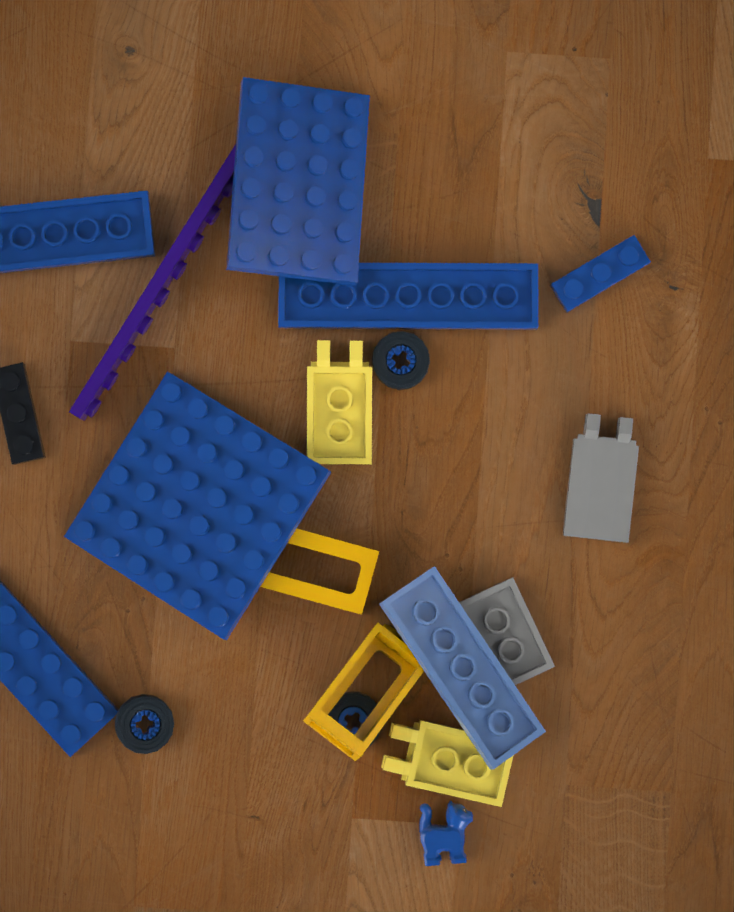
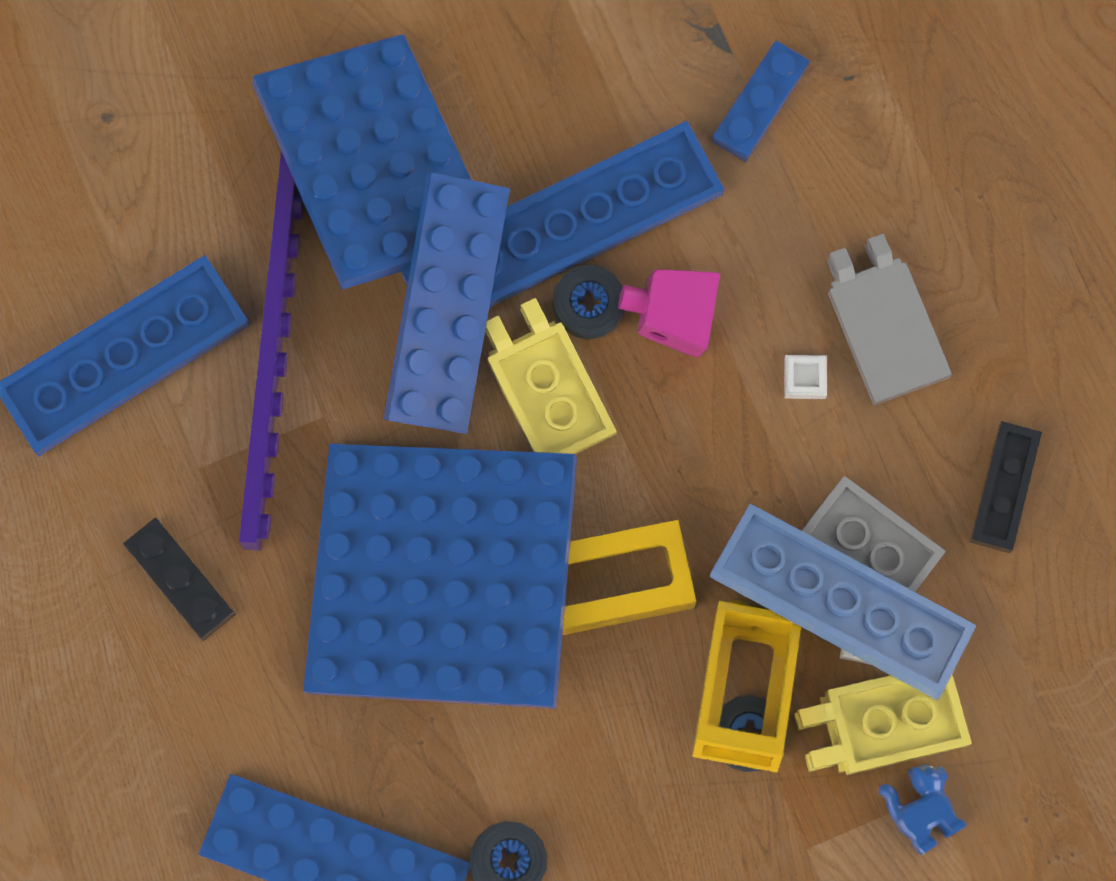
camera: 30 degrees left, 10 degrees down
(296, 314) = (446, 303): none -> blue plate
(457, 397) = (675, 308): none -> dark pink torso
(525, 491) = (805, 376): none -> white tile
(622, 641) = (1005, 487): none -> black plate

